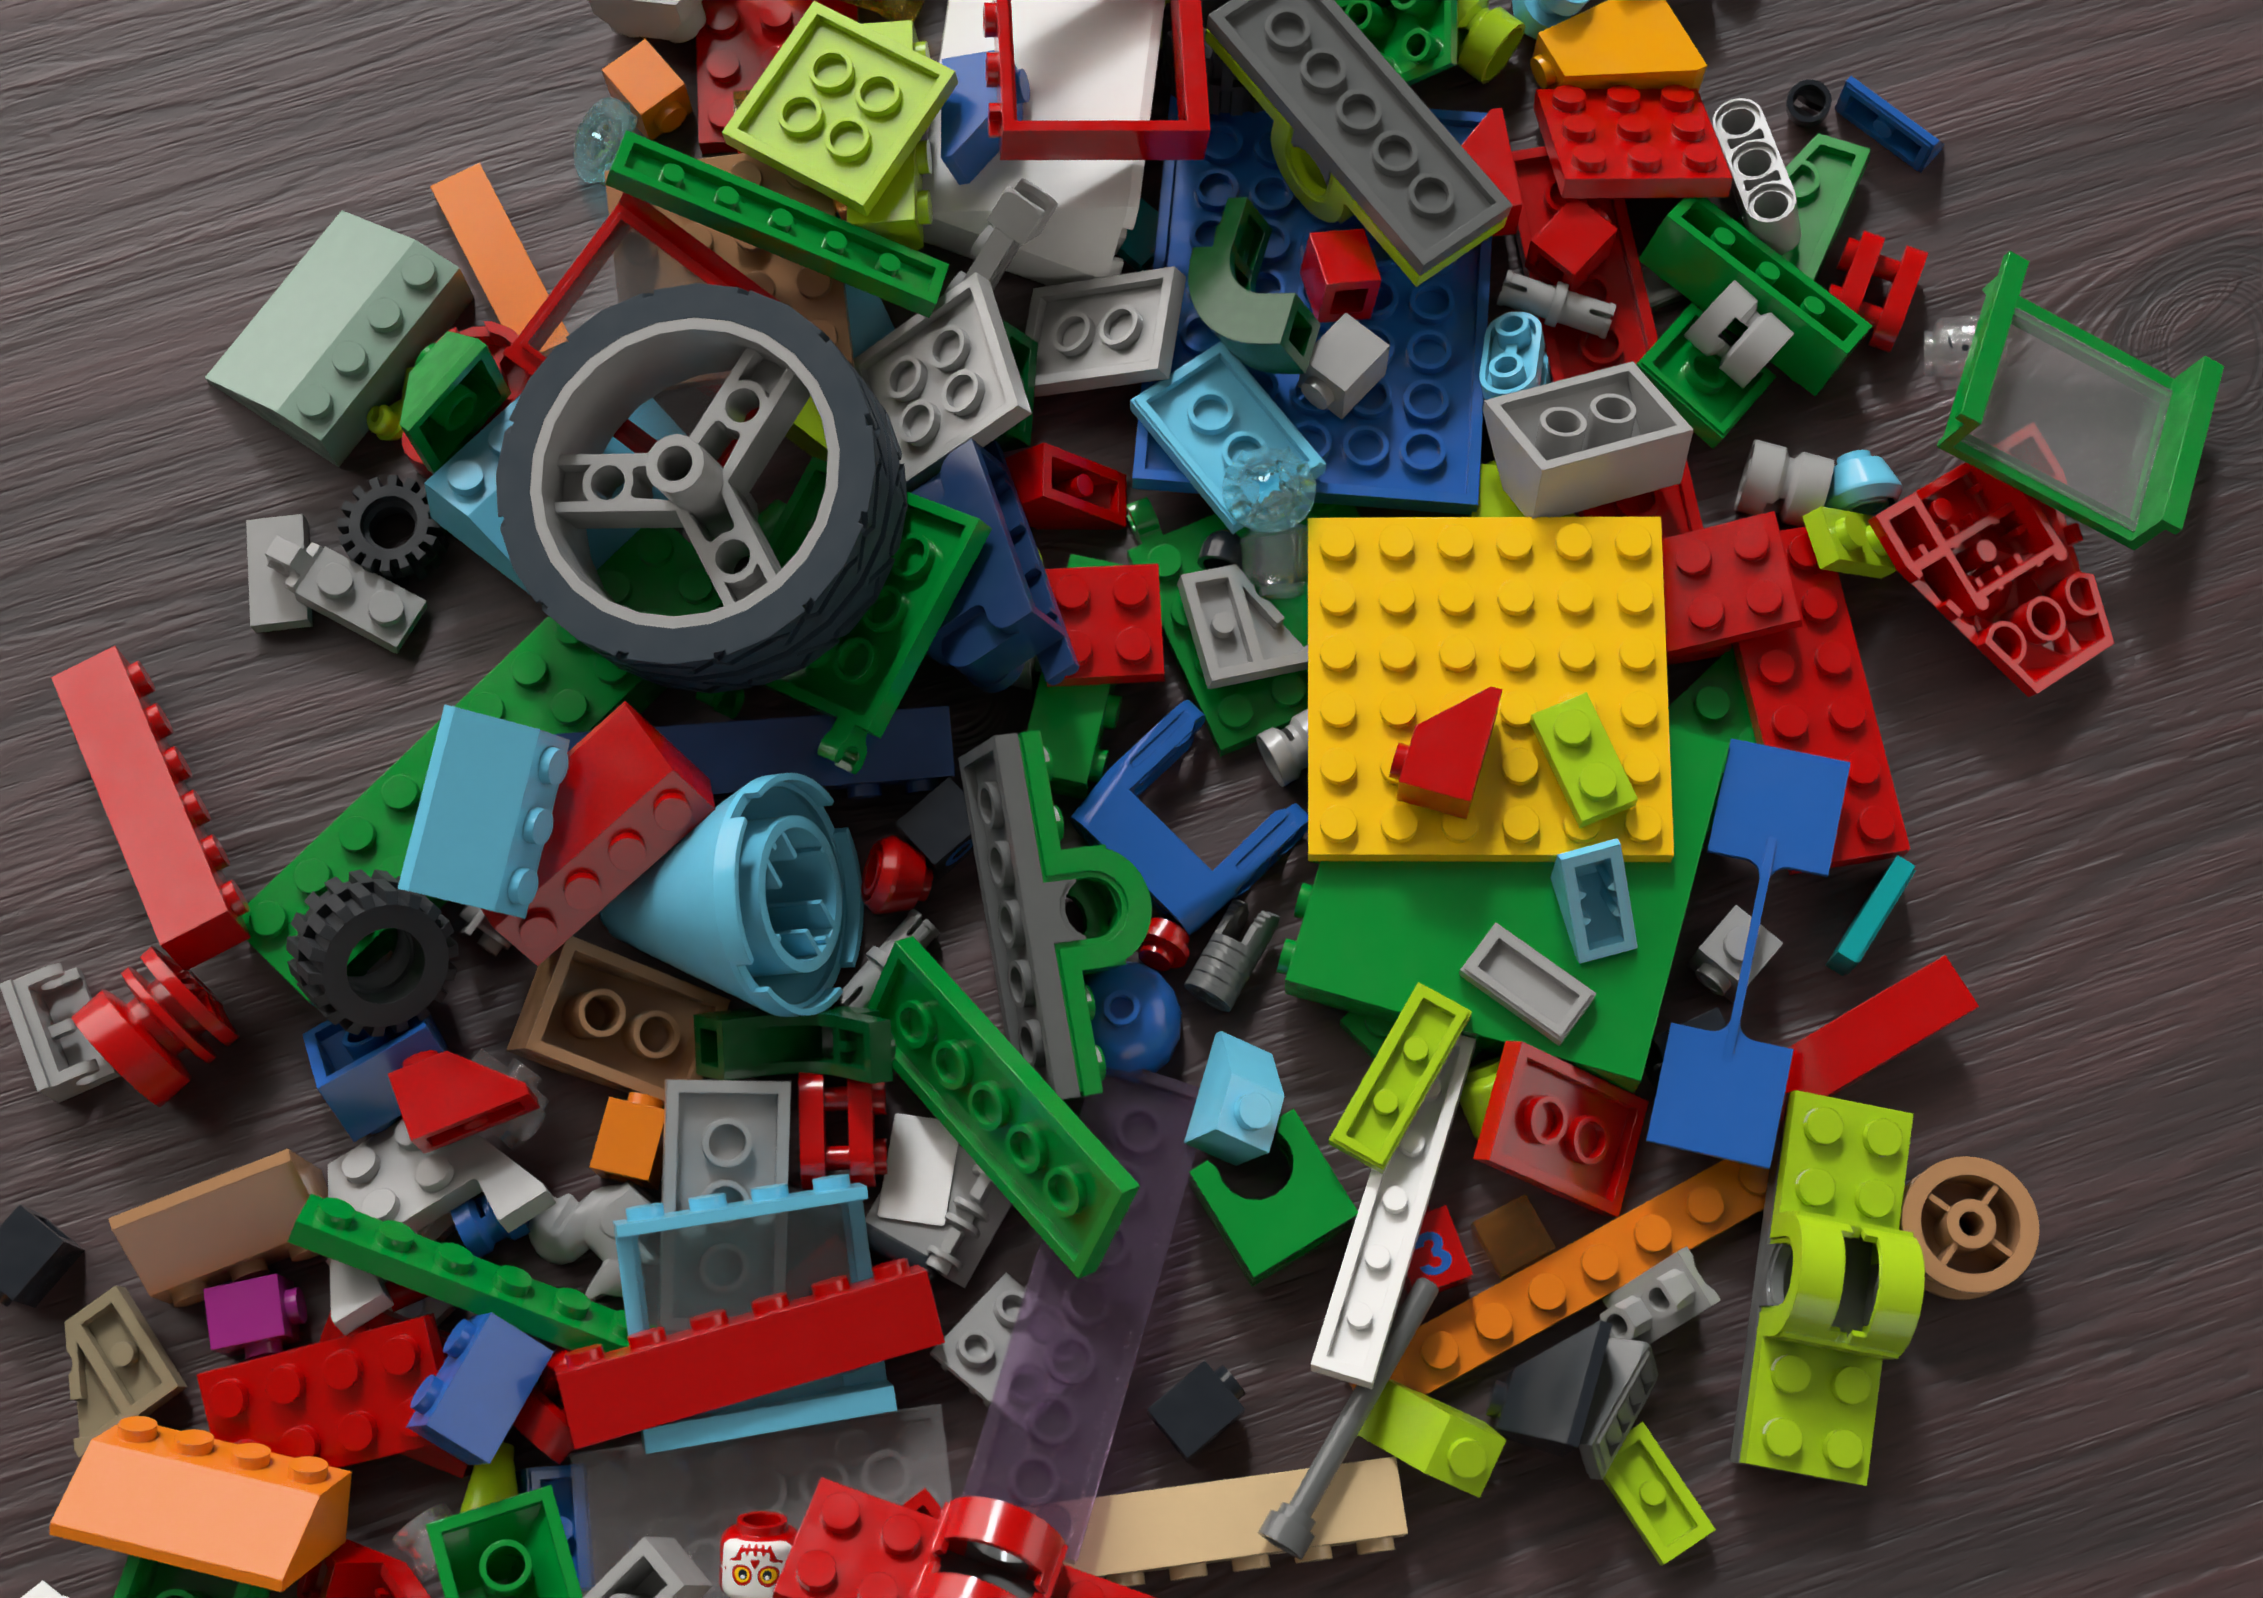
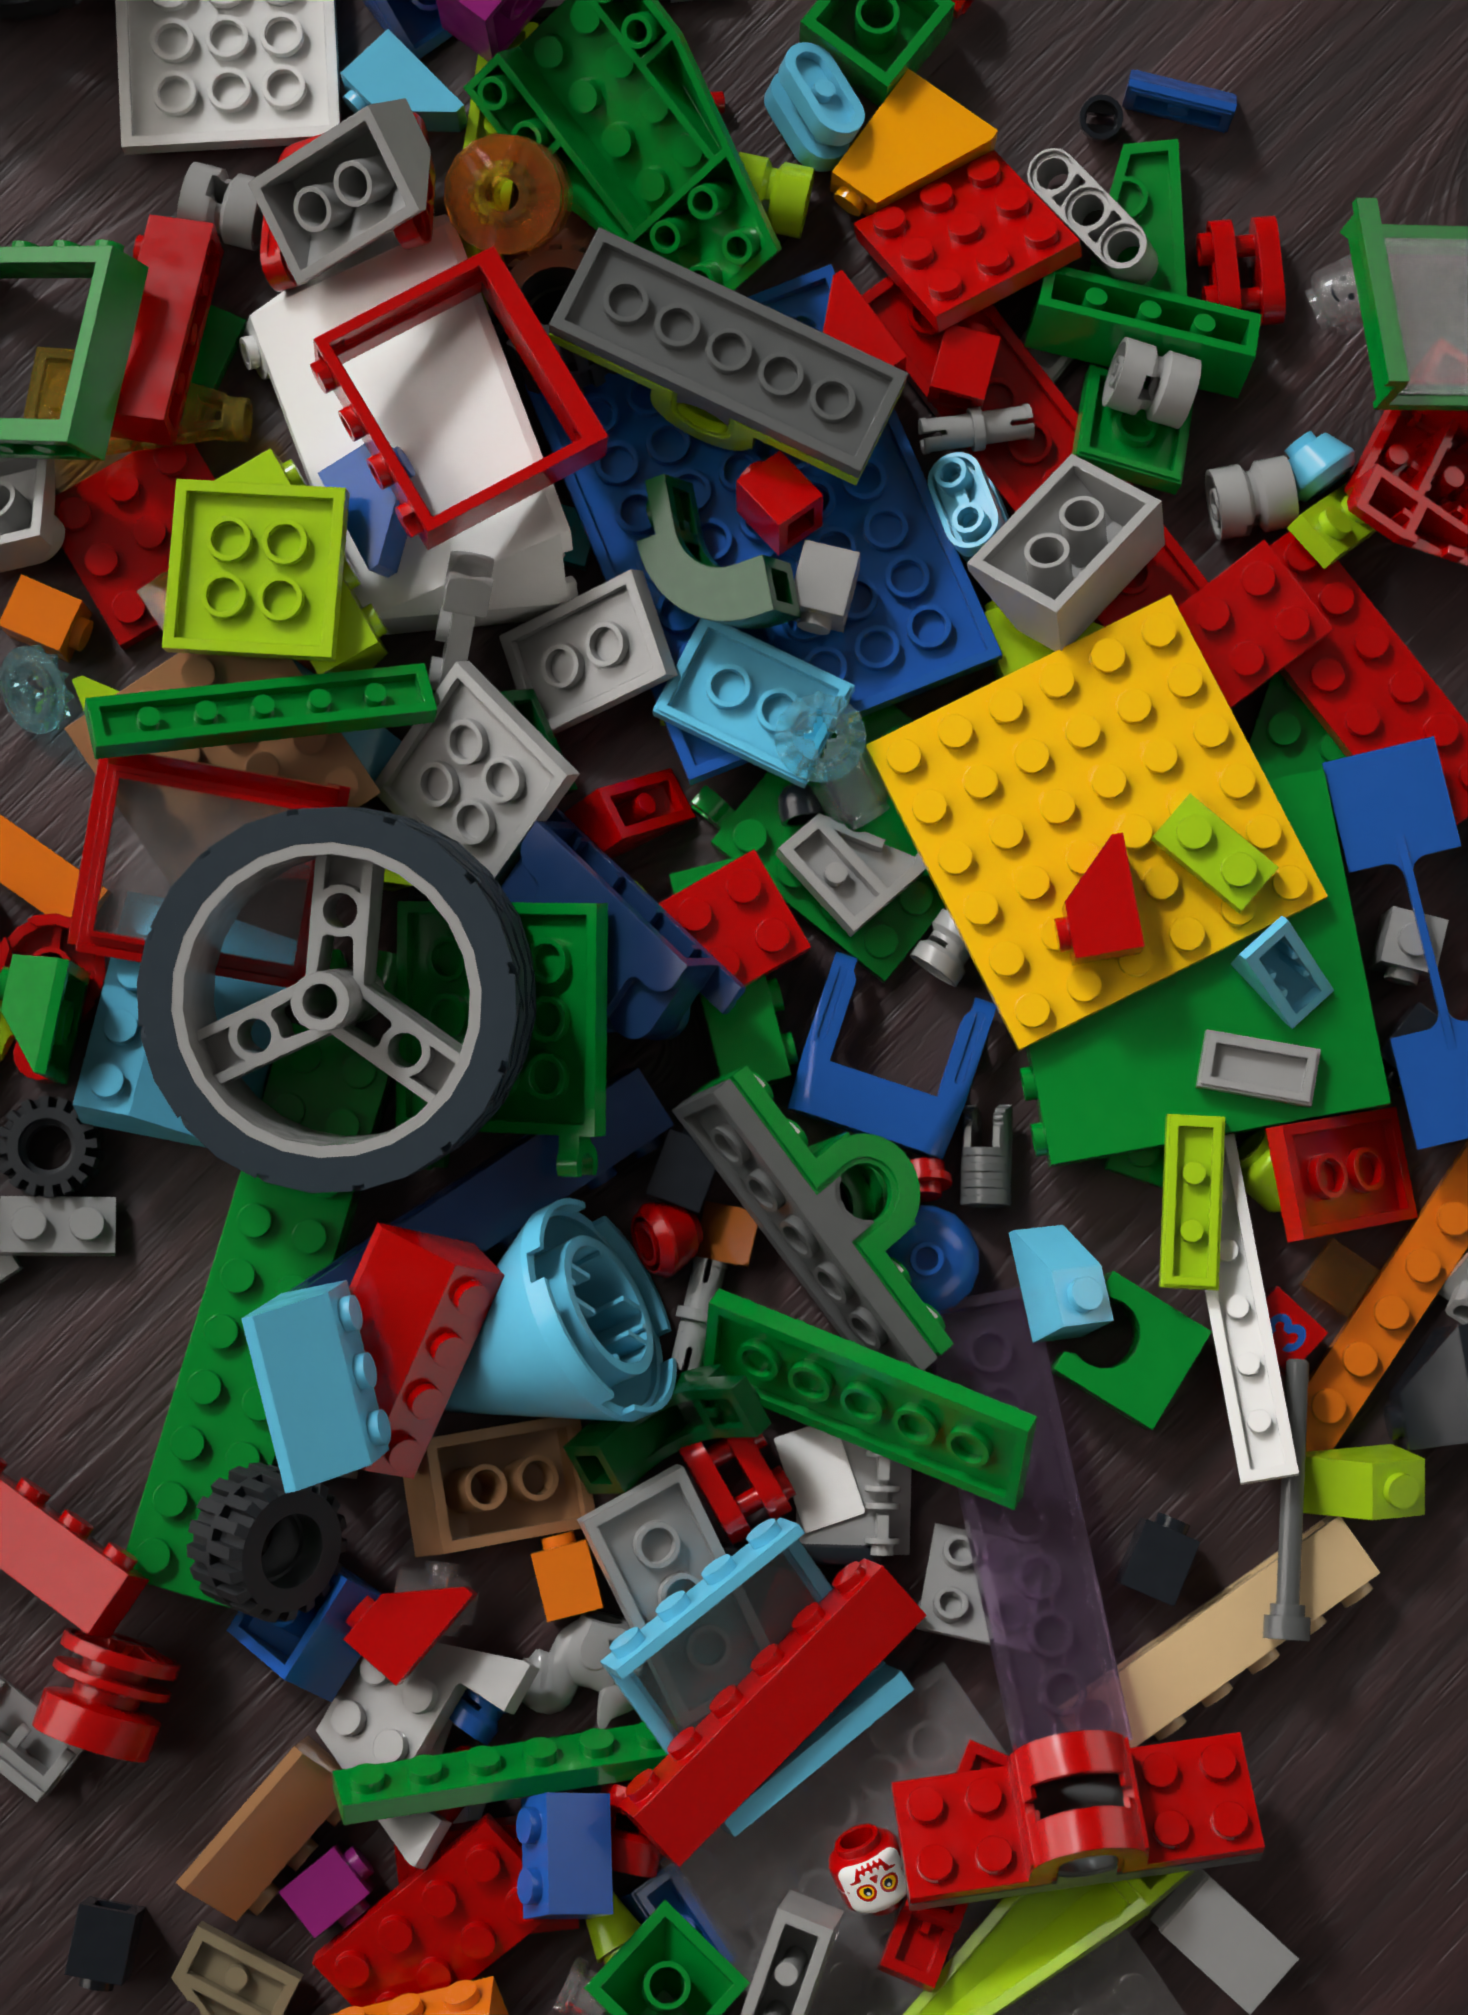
camera: 30 degrees left, 10 degrees up
(953, 907) = (727, 1234): none -> dark orange slope

